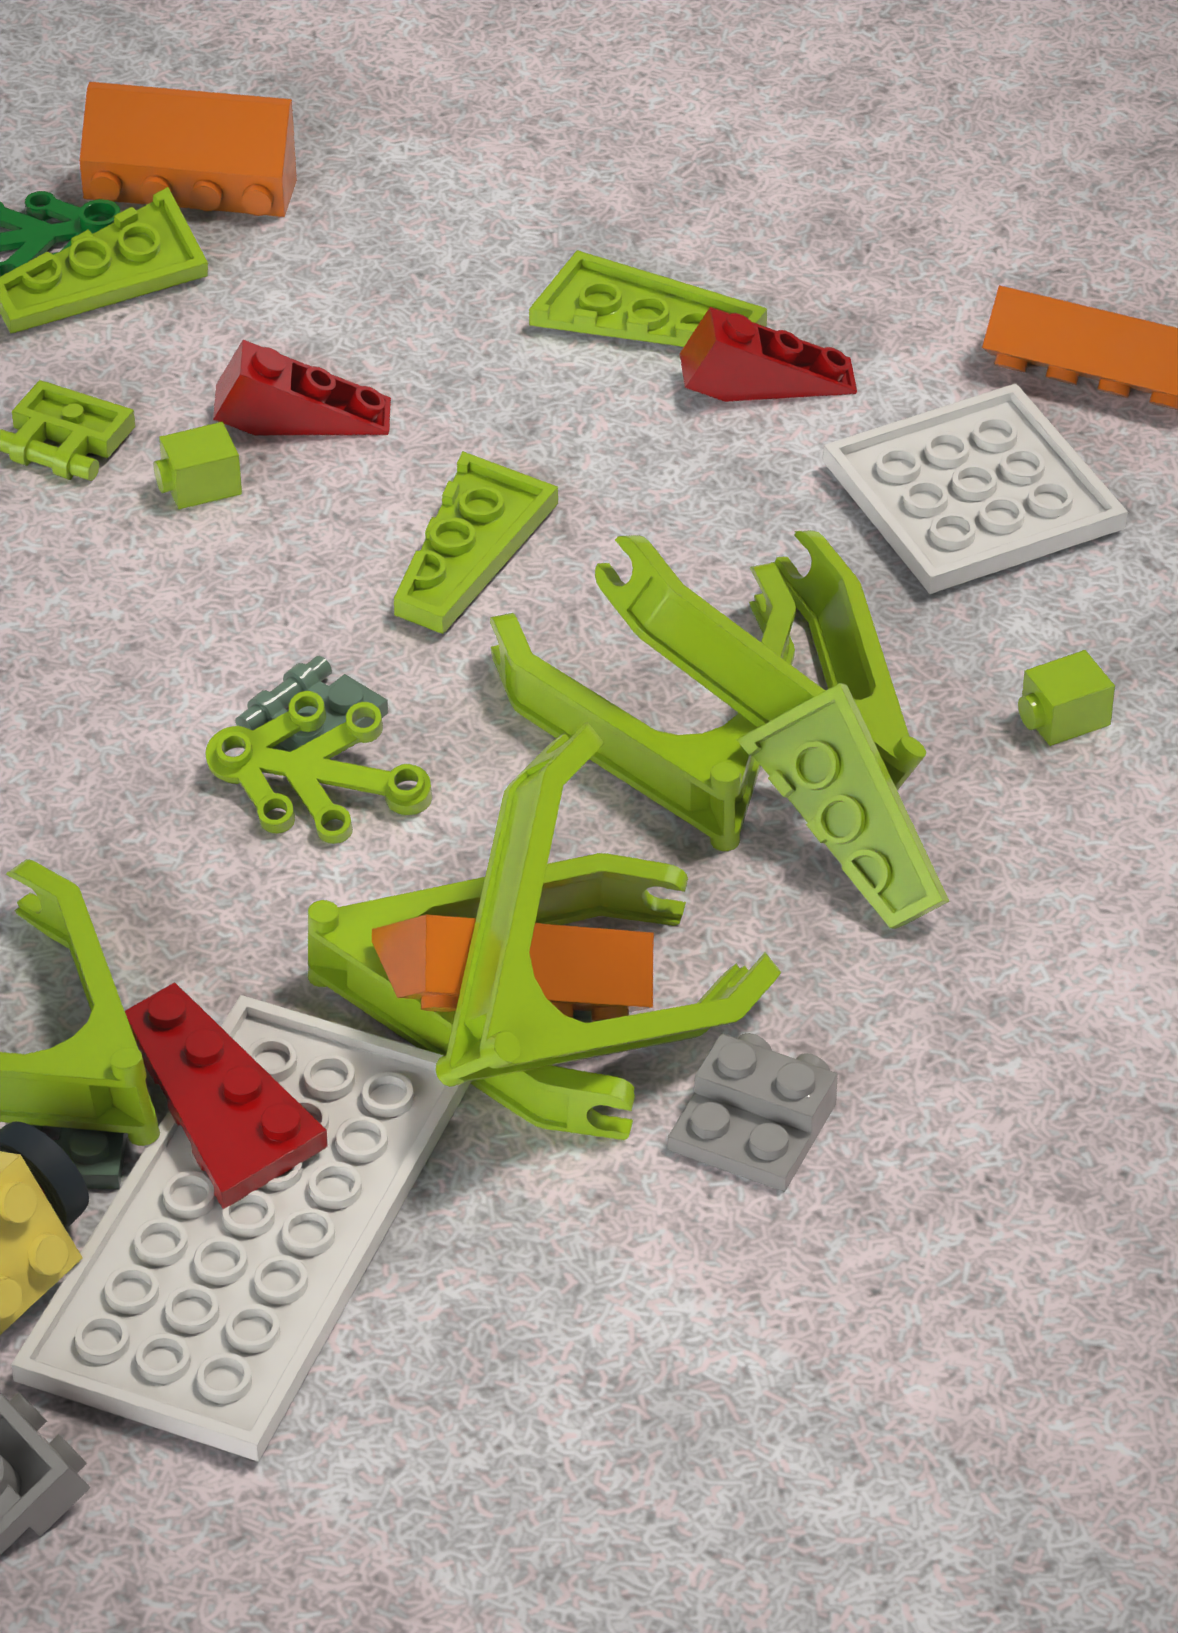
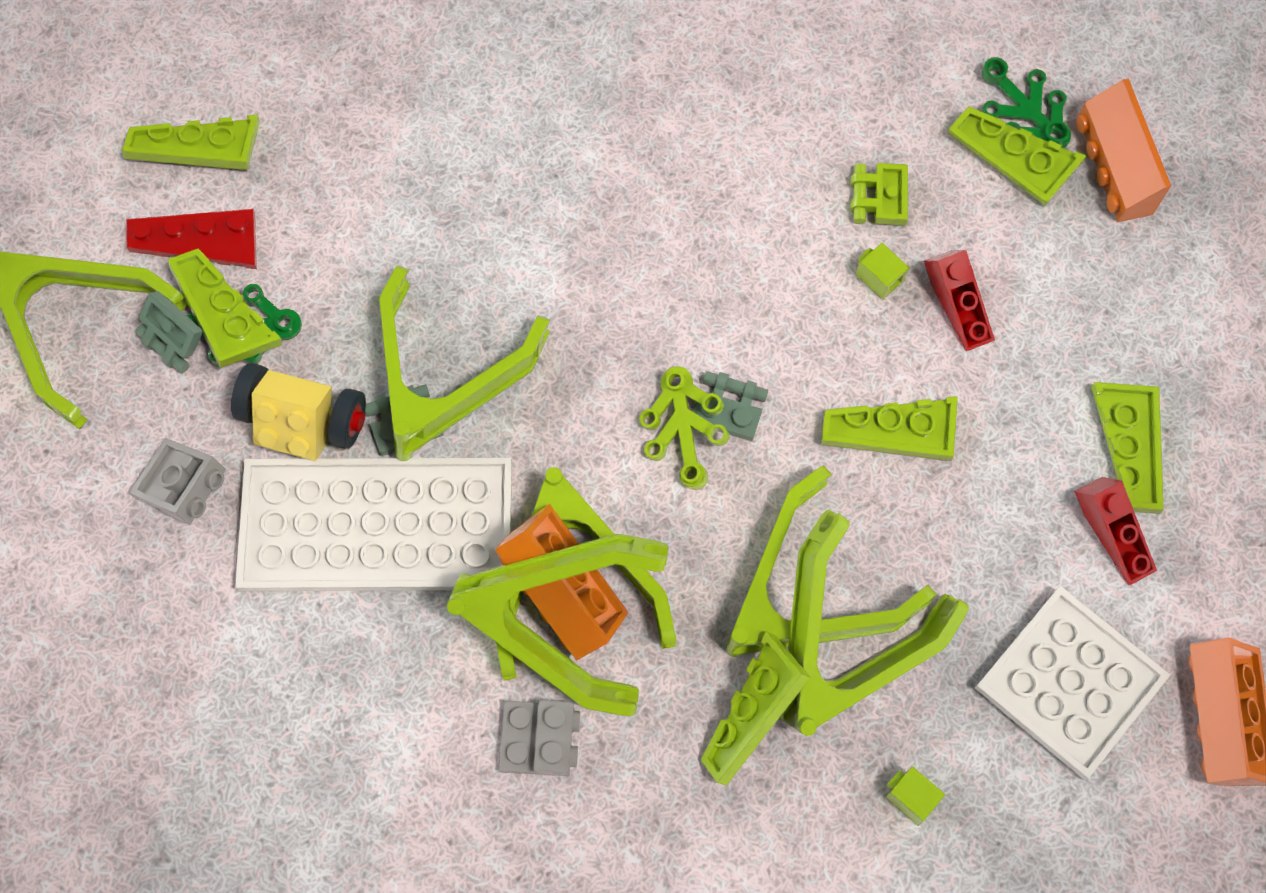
camera: 65 degrees right, 25 degrees up
(229, 1106) = (432, 482): red wing -> none

